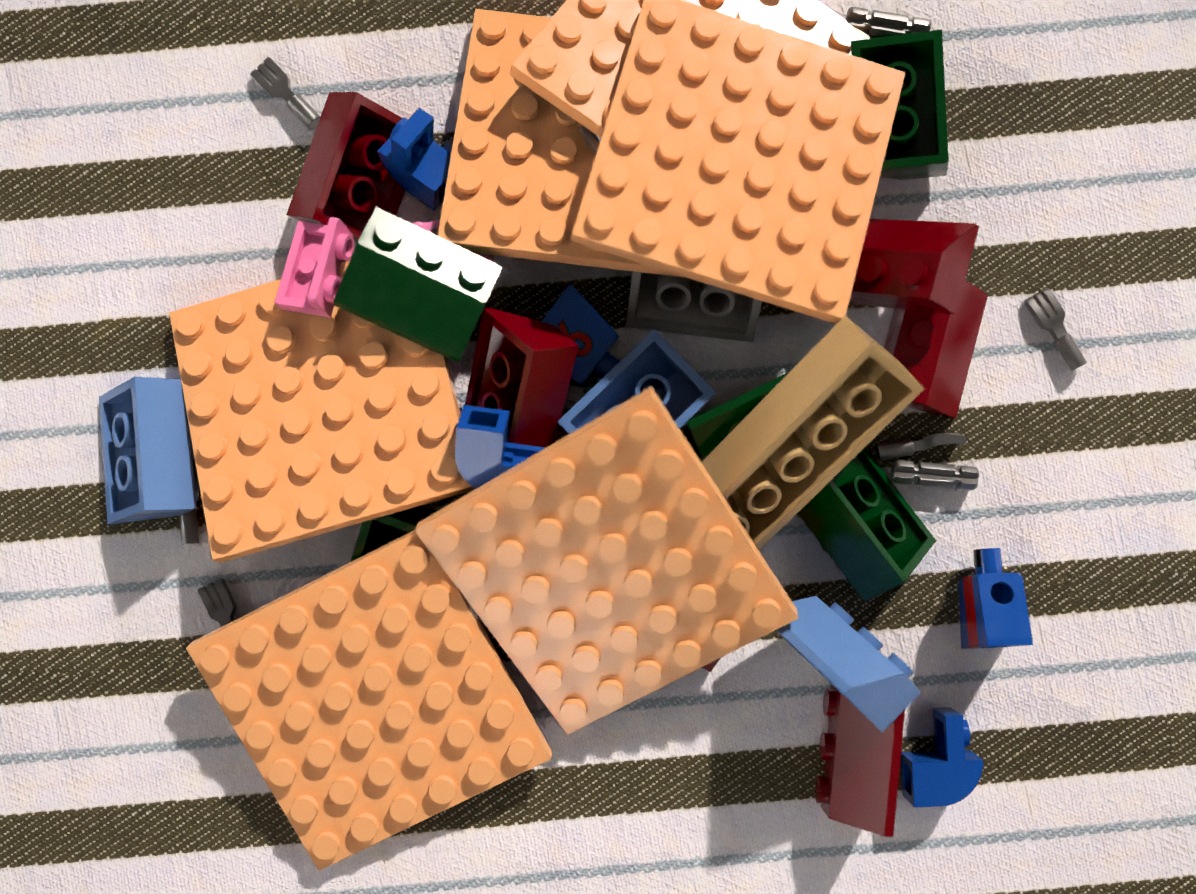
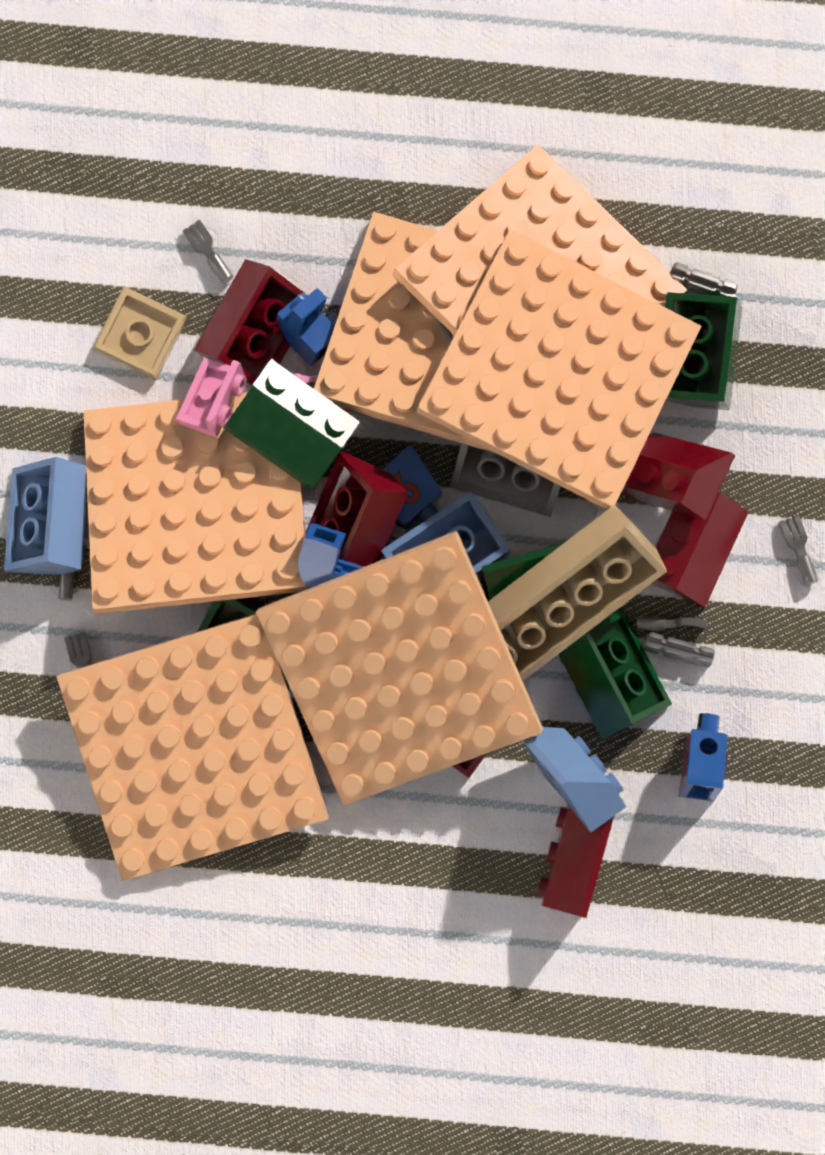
camera: 10 degrees right, 5 degrees down
(222, 206) = (140, 333): none -> tan tile
(943, 774) = (645, 891): blue brick -> none

